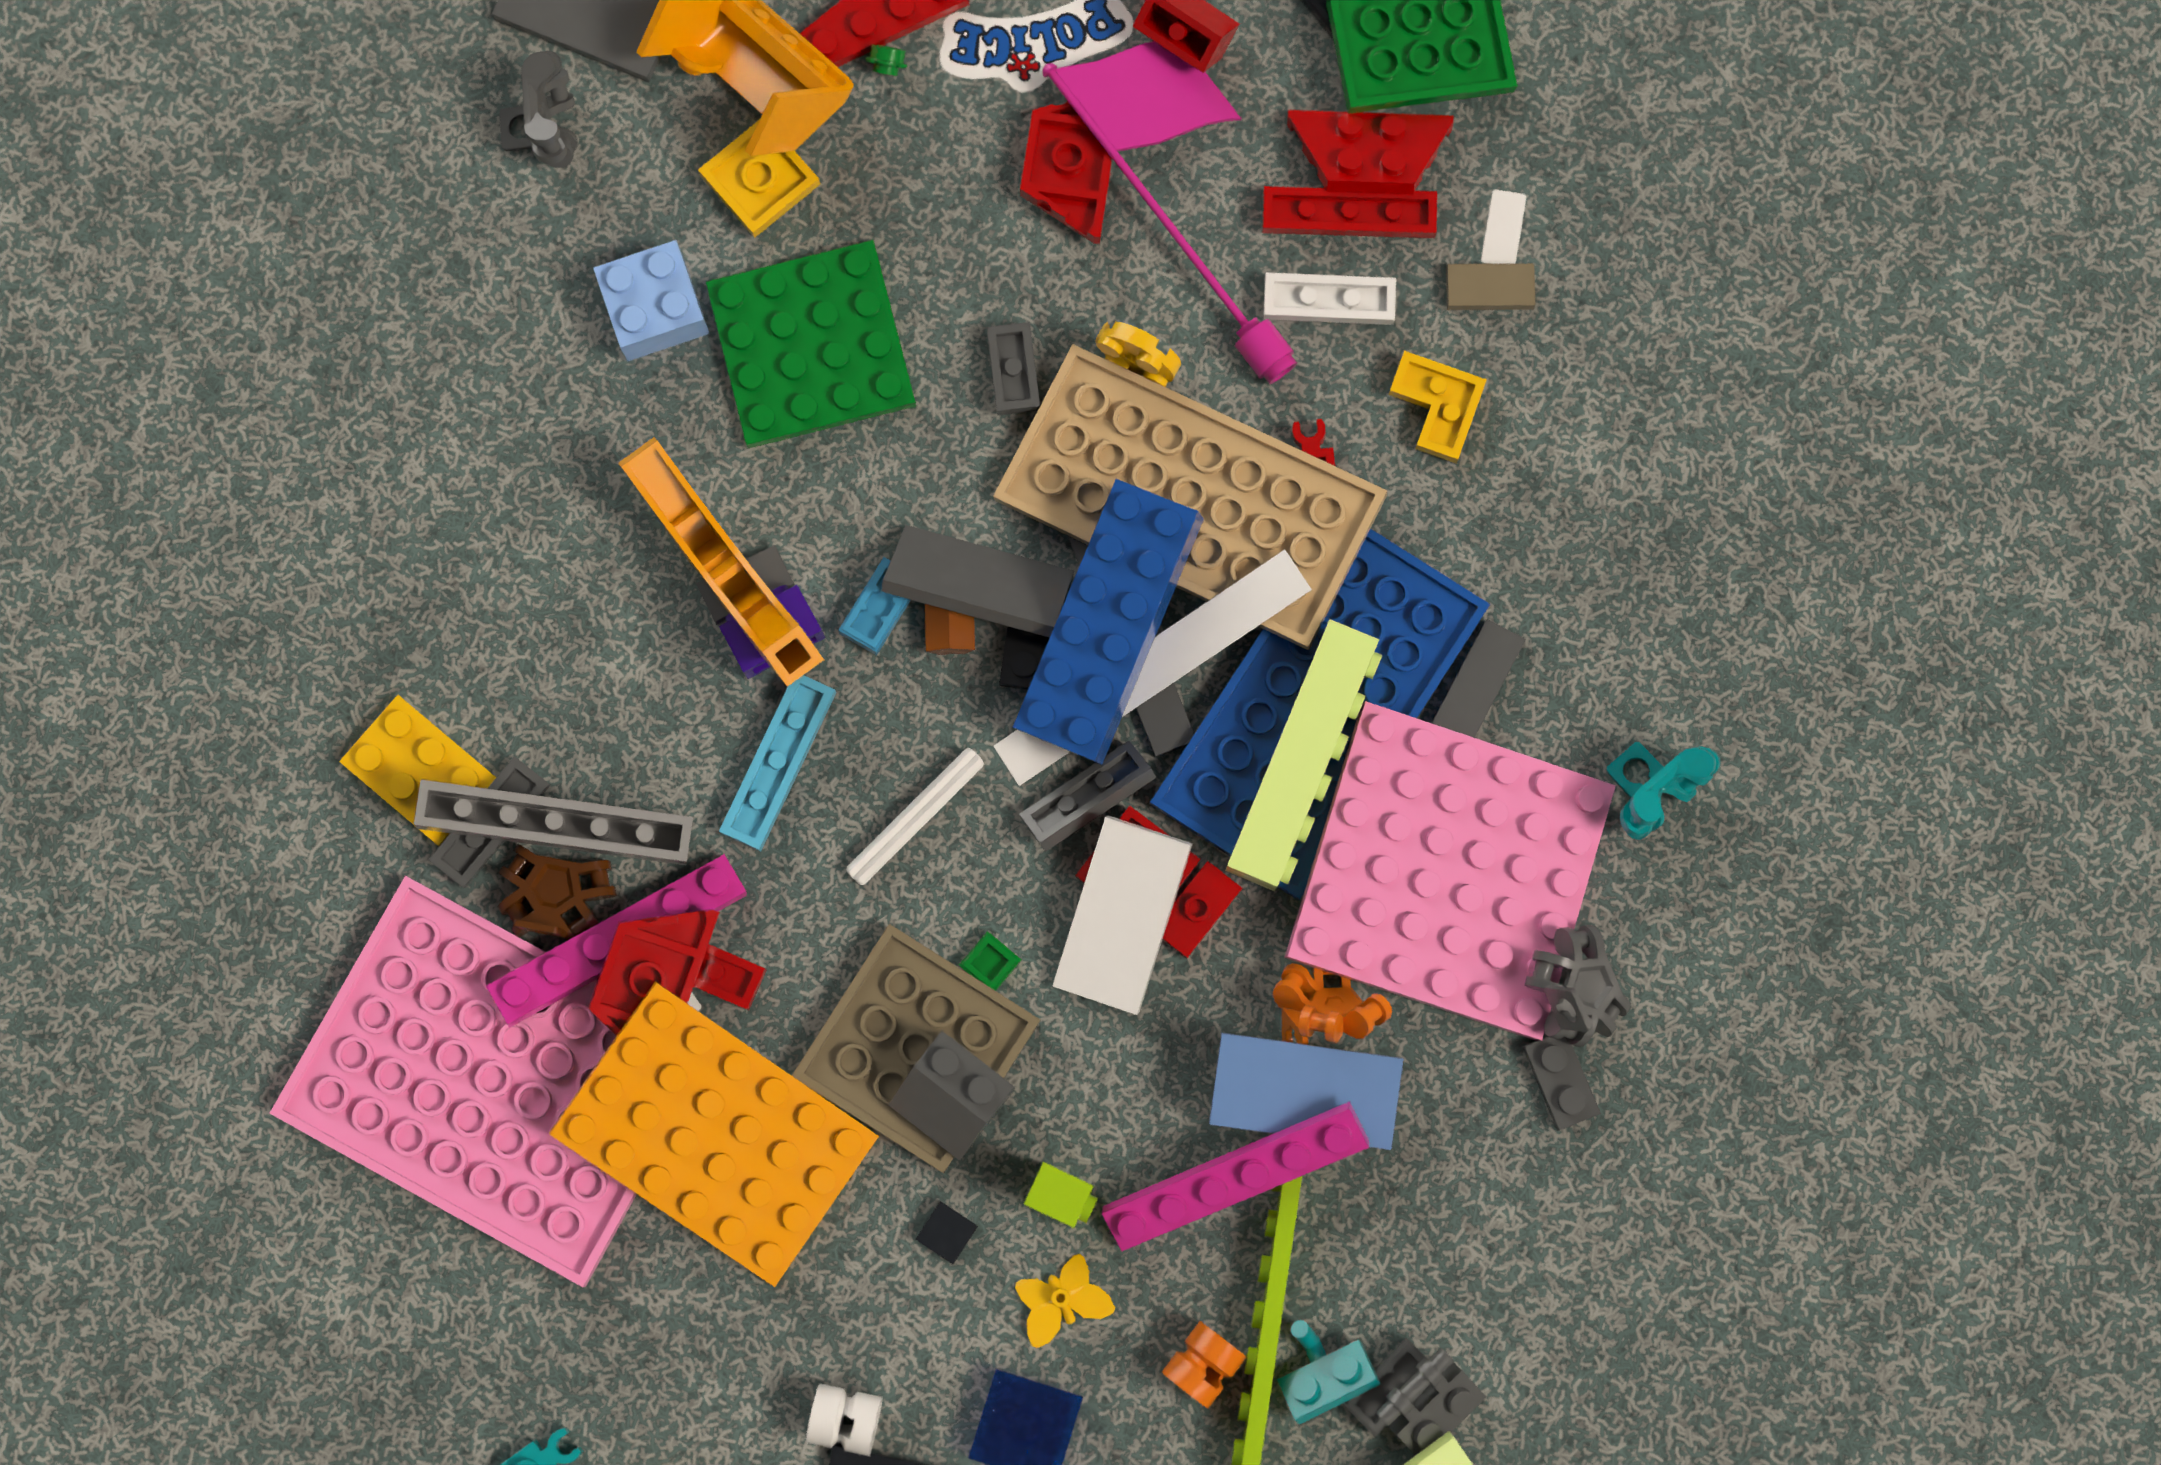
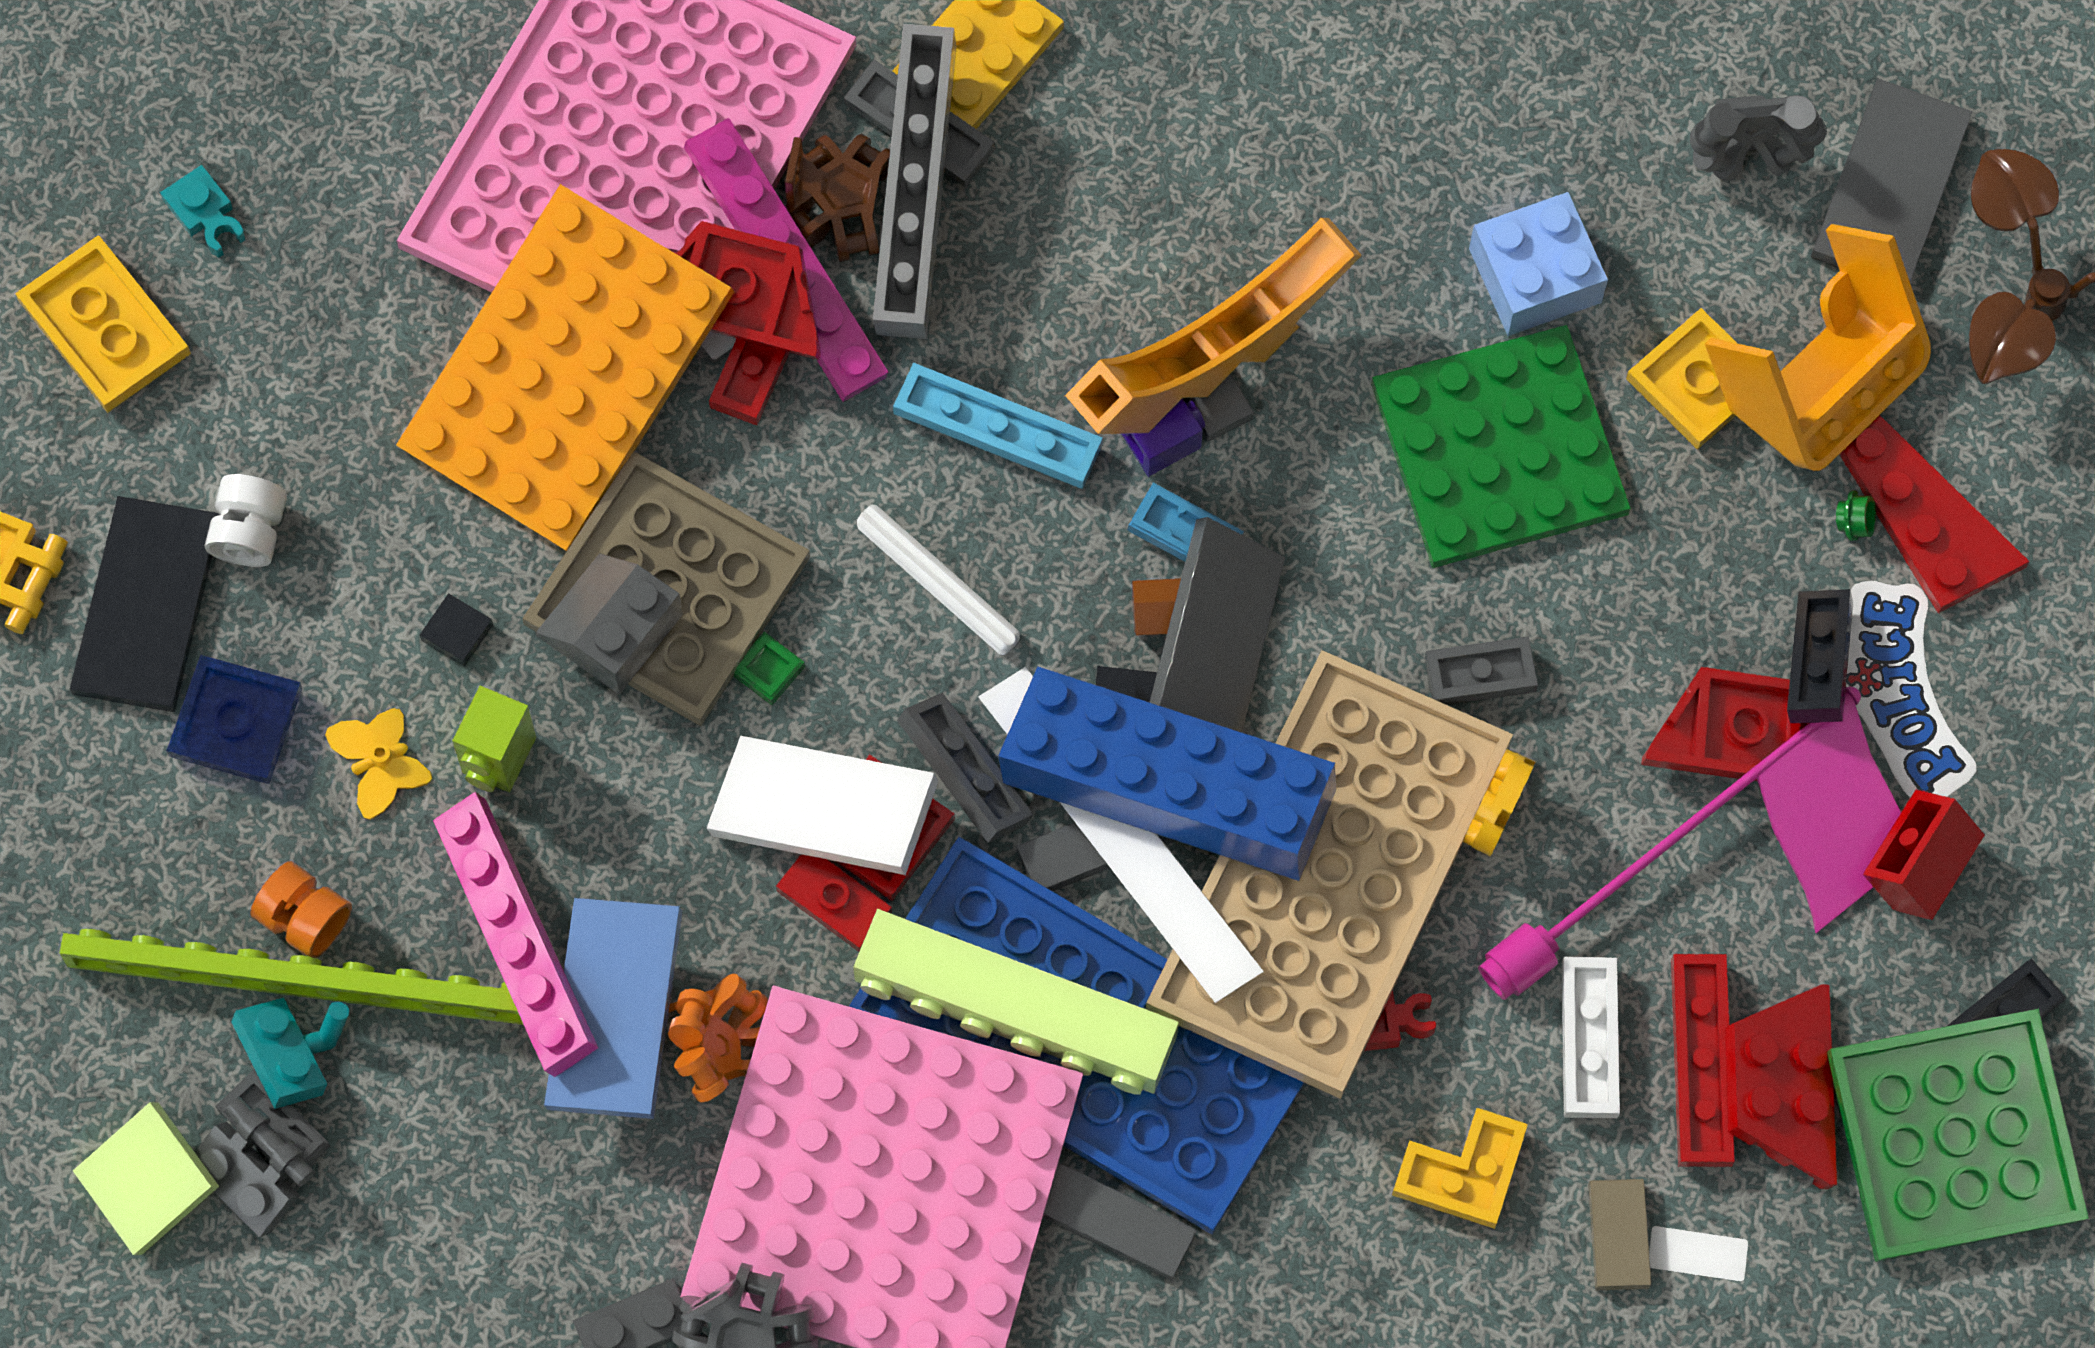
camera: 85 degrees right, 10 degrees down
(1014, 92) = (1820, 656): none -> black plate

